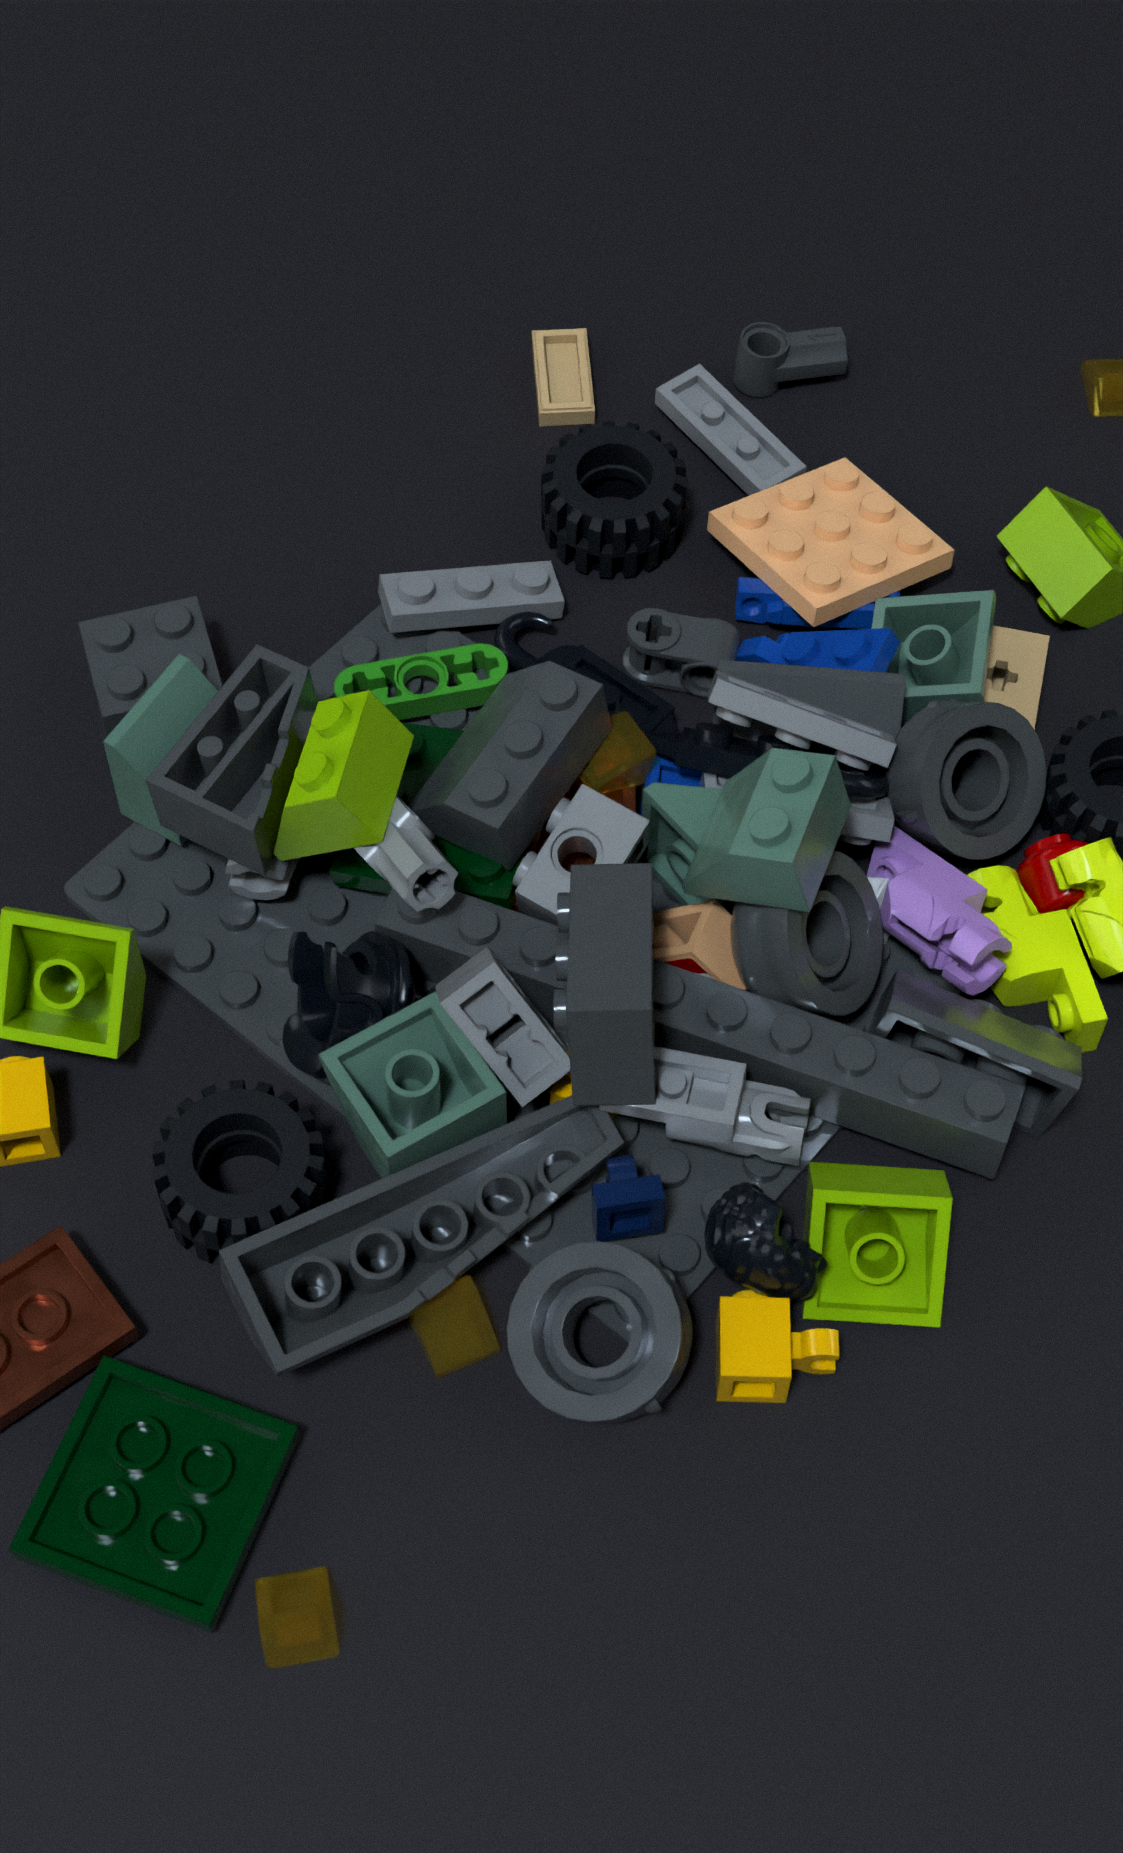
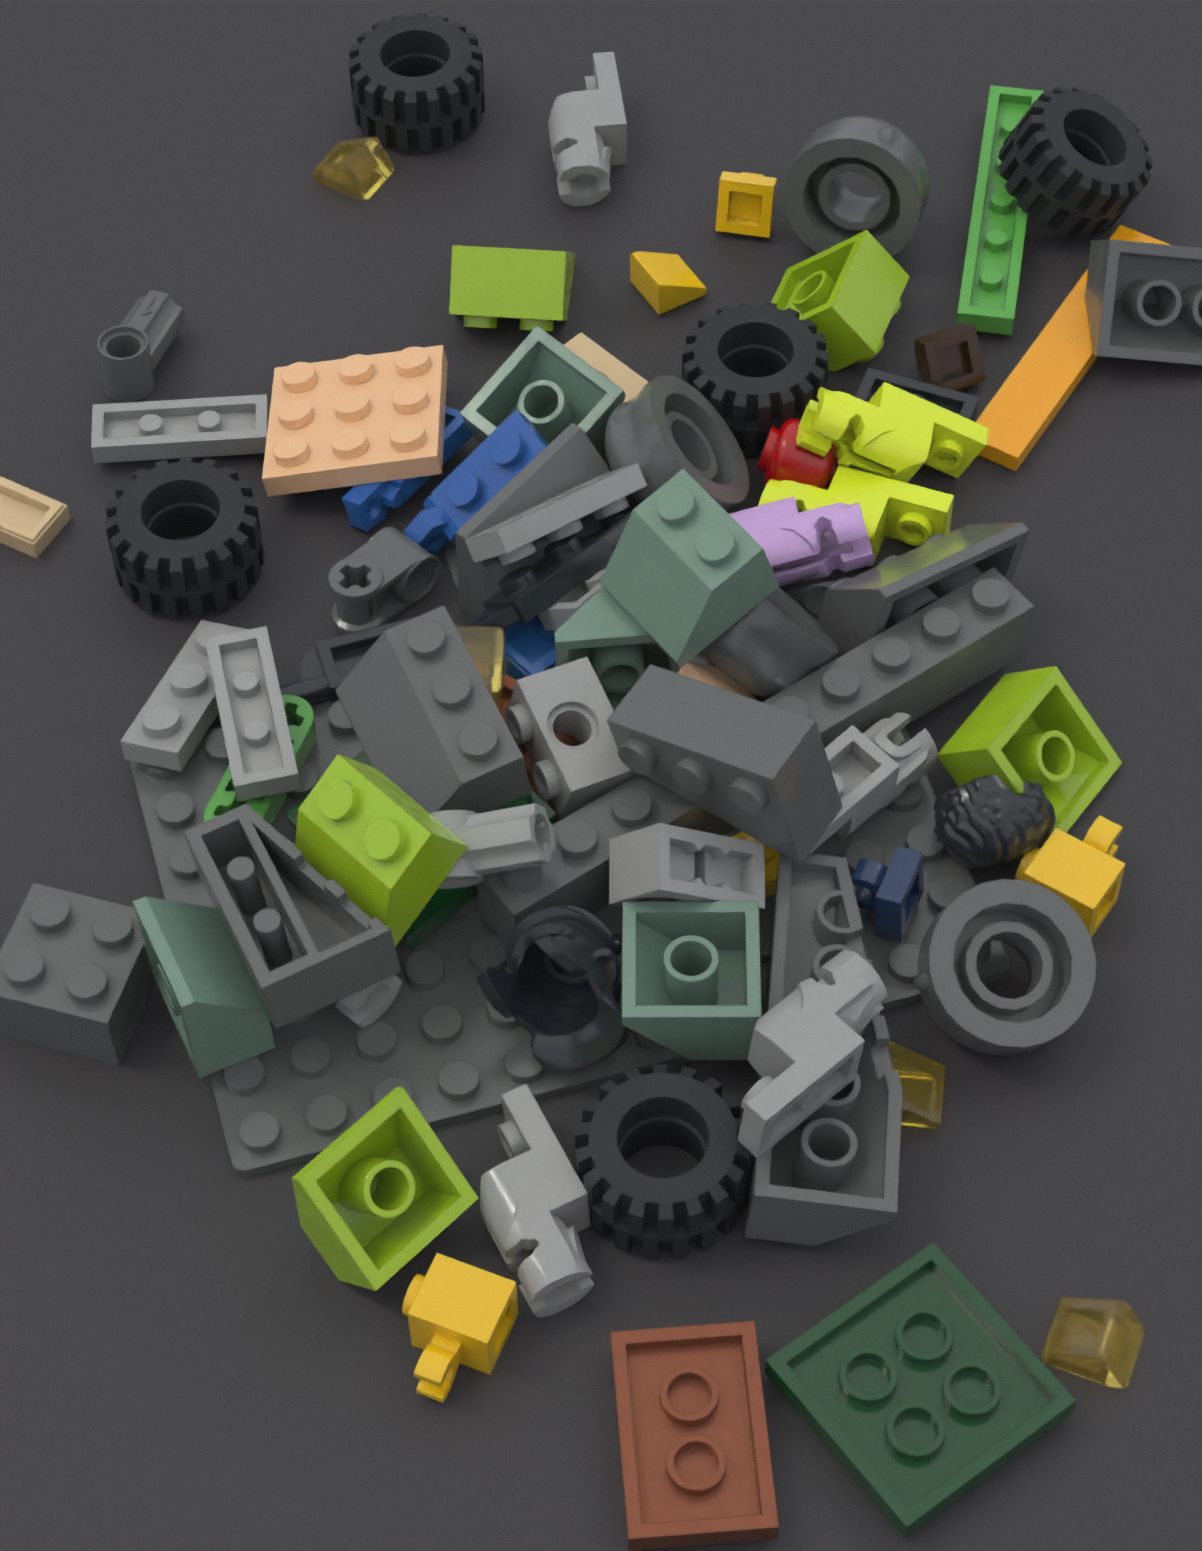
camera: 55 degrees left, 5 degrees down
(137, 1100) = (537, 1208): none -> light grey plate
(373, 1208) = (808, 1048): none -> light grey plate
(453, 637) = (252, 714): none -> light grey plate

